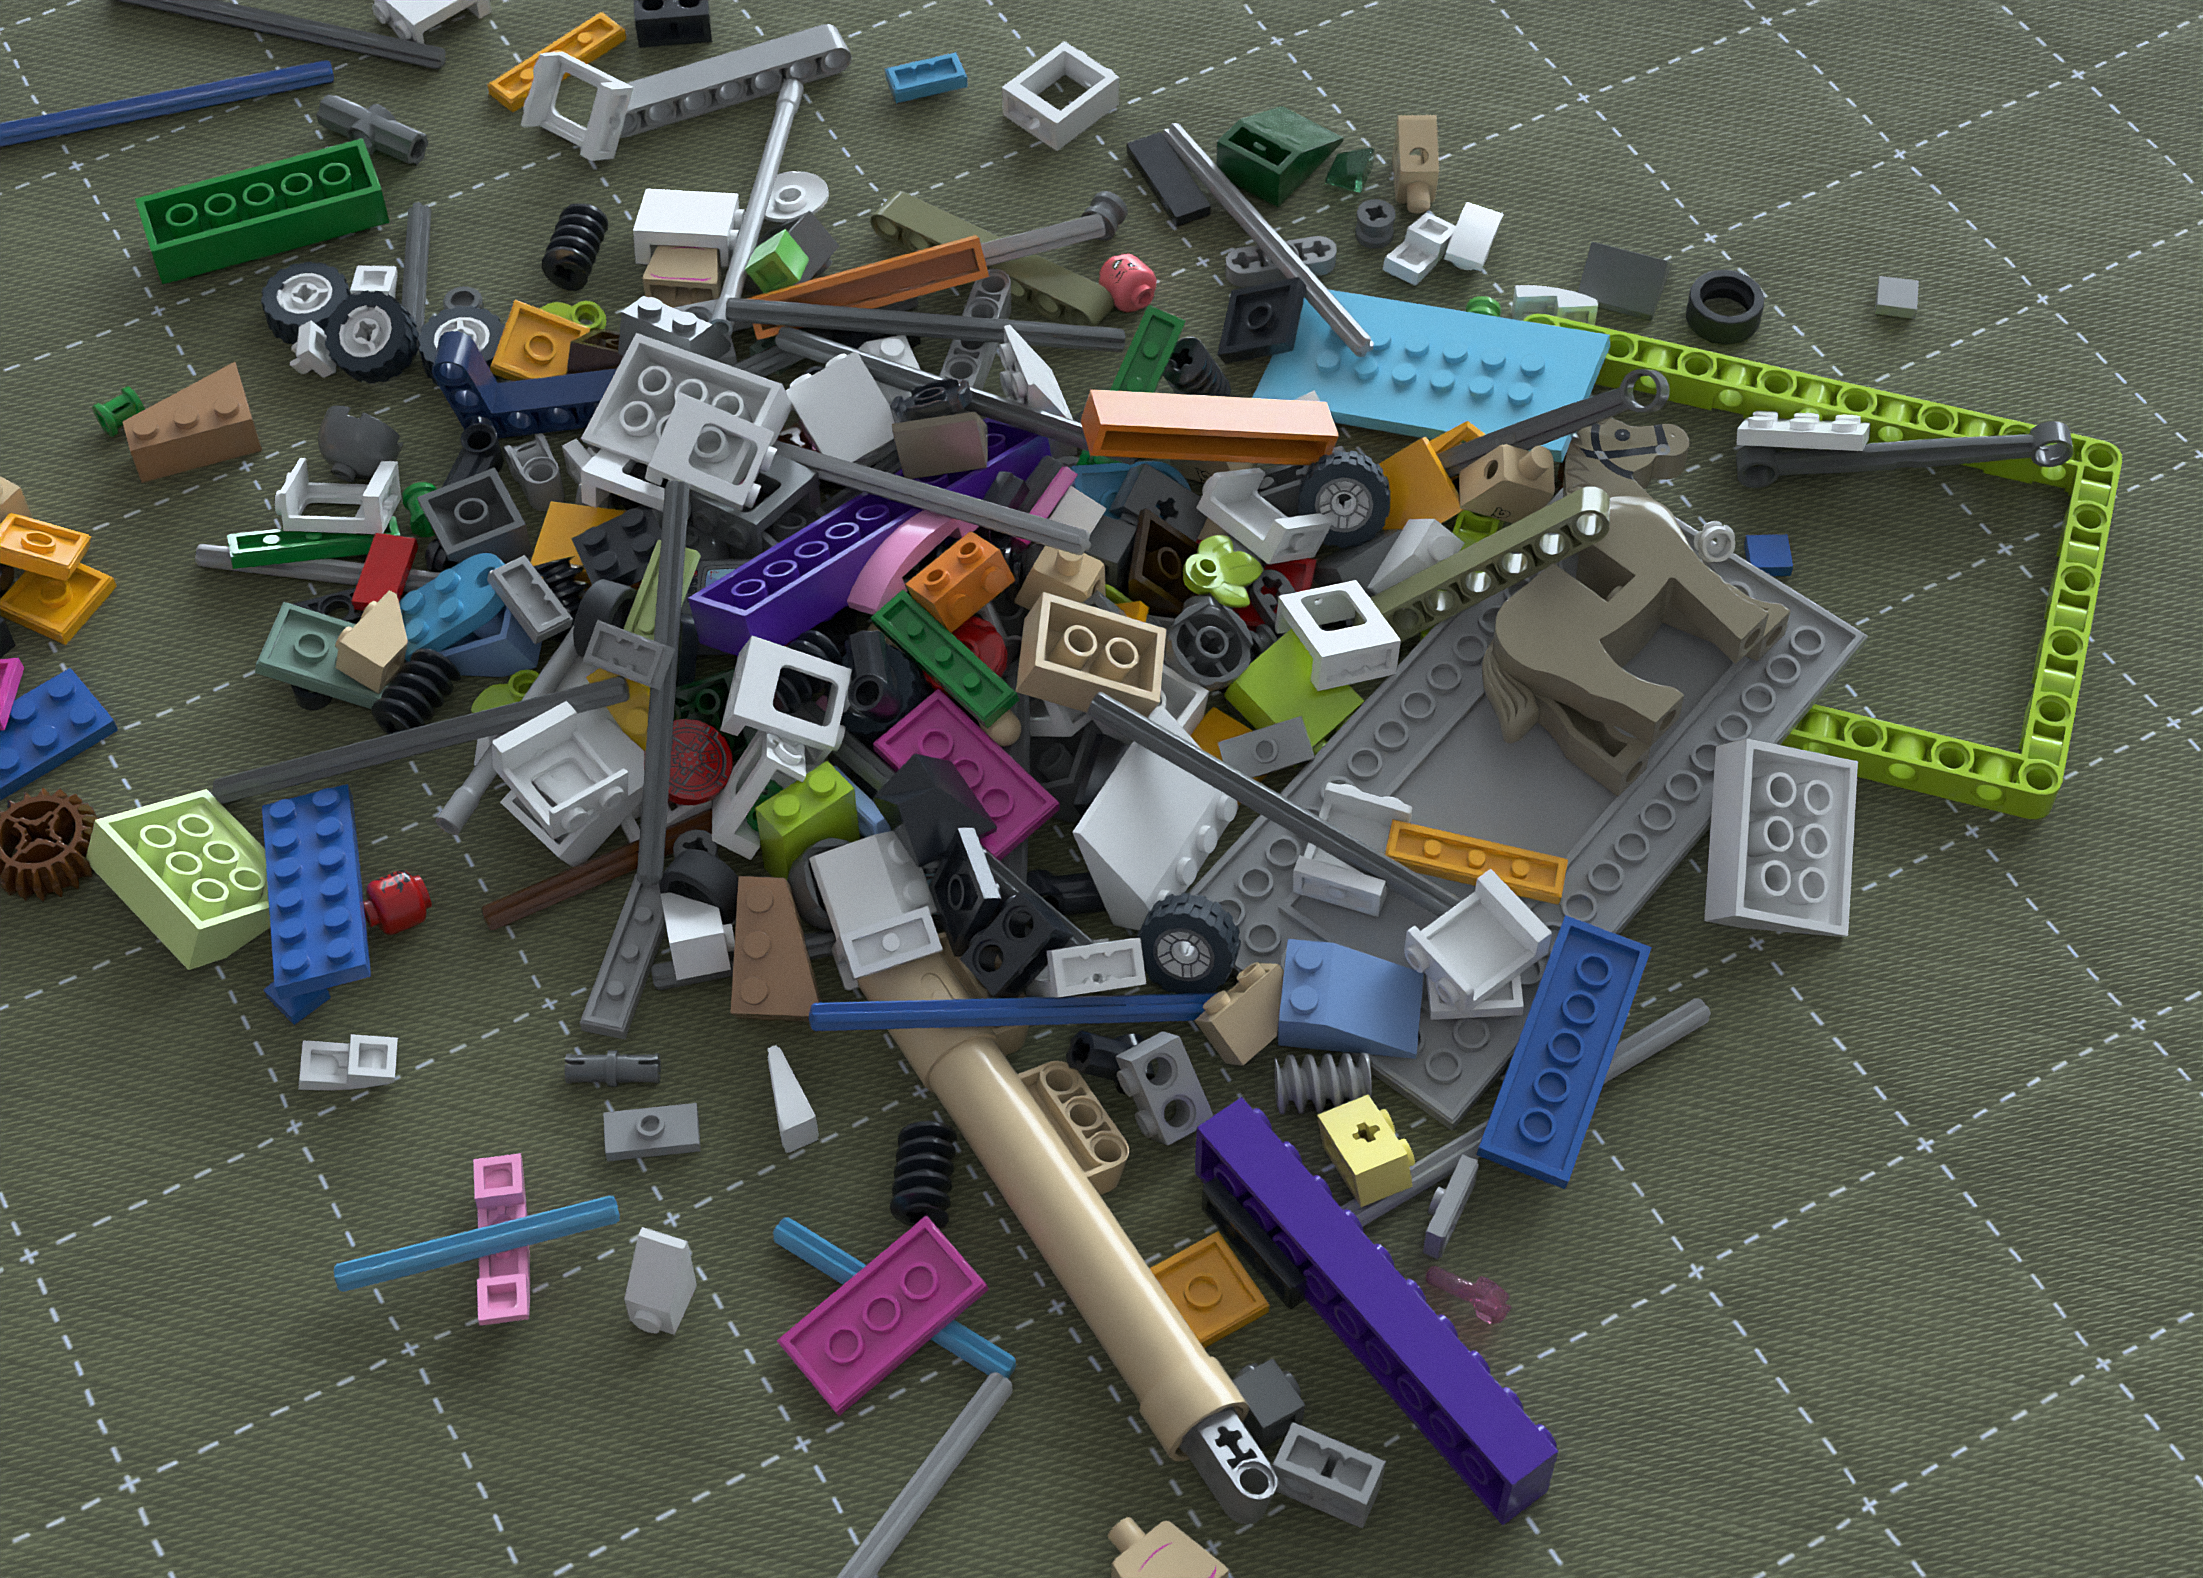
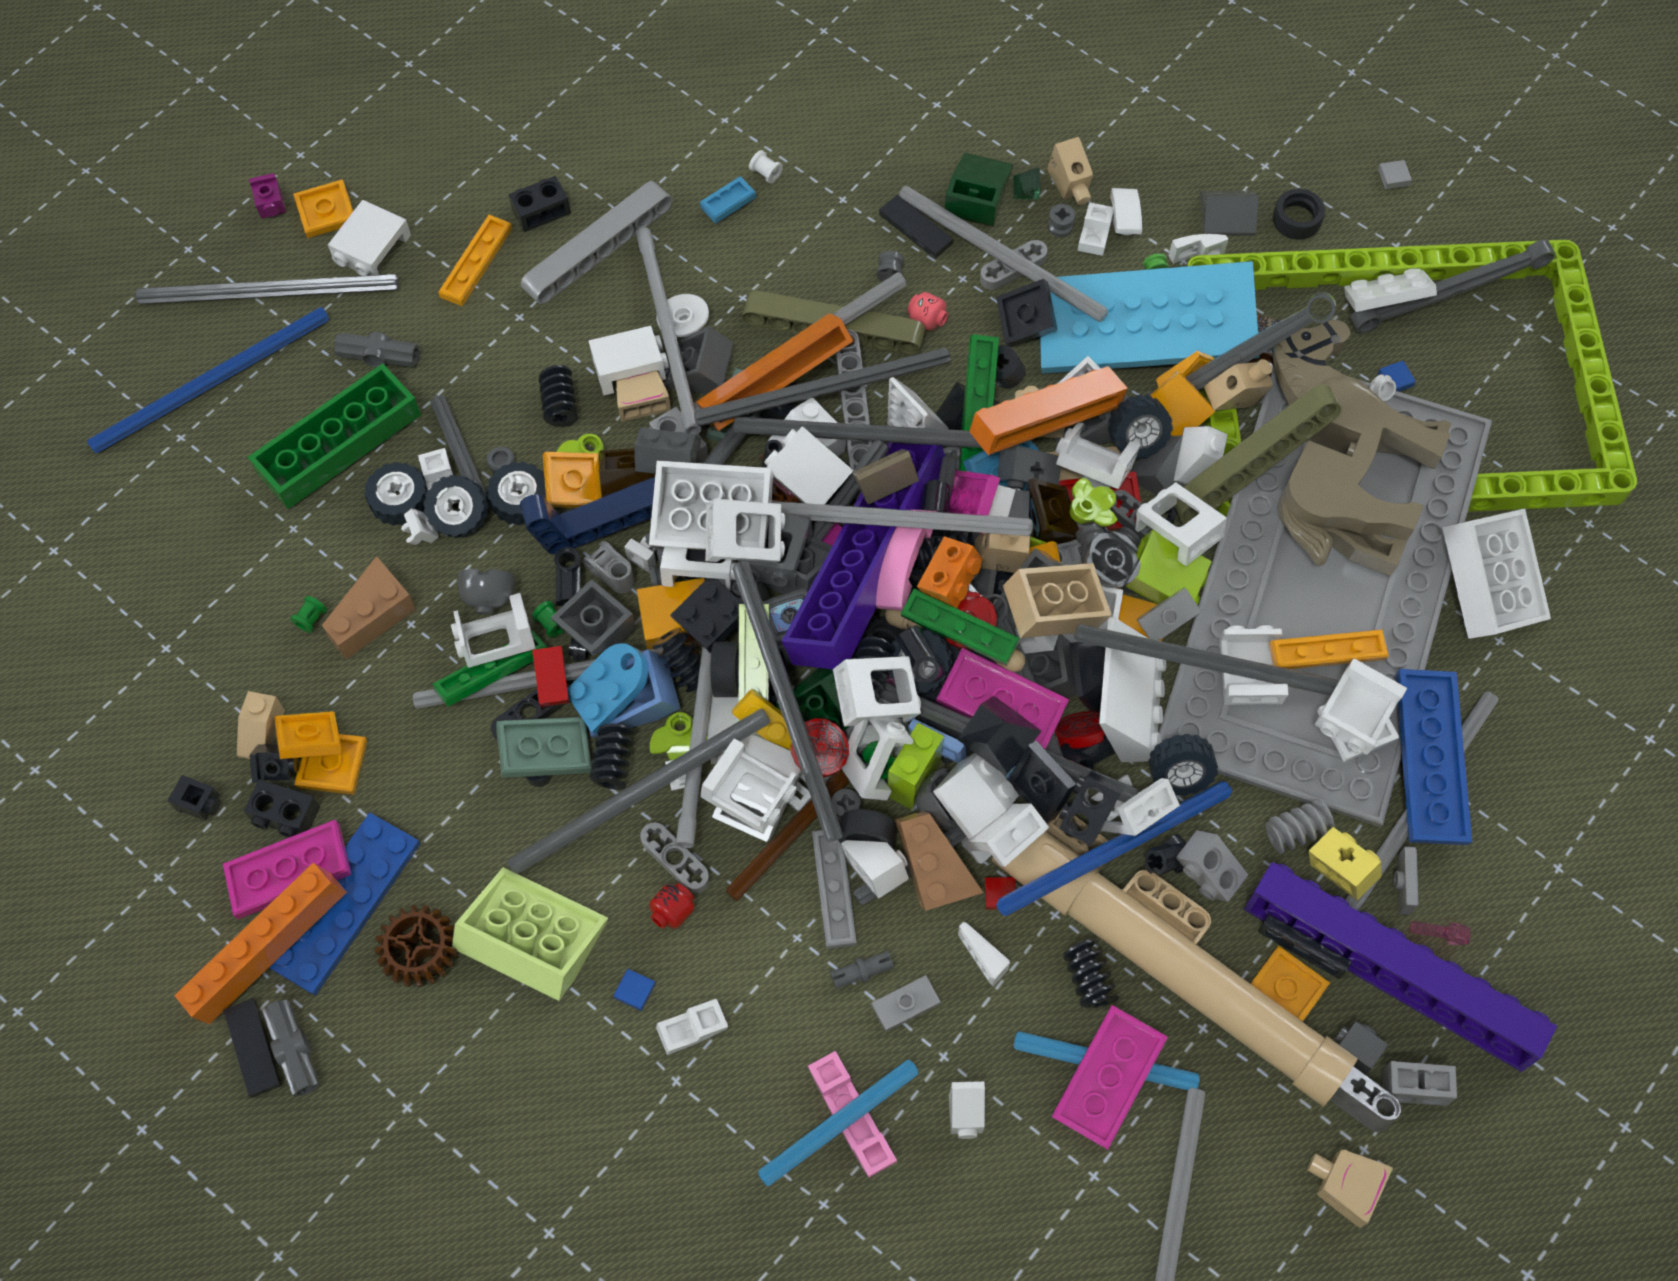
camera: 20 degrees left, 10 degrees up
(315, 892) = (619, 919): blue plate -> none
(375, 646) = (575, 731): tan slope -> none
(434, 865) = (695, 867): none -> light grey beam
(529, 599) = (666, 669): light grey plate -> none
(608, 112) = (537, 292): white window -> none
(628, 655) = (761, 693): light grey plate -> none
(777, 263) = (705, 371): bright green panel -> none
(854, 1044) = (997, 888): none -> red tile
(932, 400) = (866, 447): black tile -> none
(993, 45) = (765, 166): none -> white bush
(1045, 121) = (824, 210): white window -> none
(1058, 860) = (1080, 730): none -> red tile
(1246, 1015) = (1236, 798): tan slope -> none
(1348, 1001) = (1291, 769): medium blue slope -> none

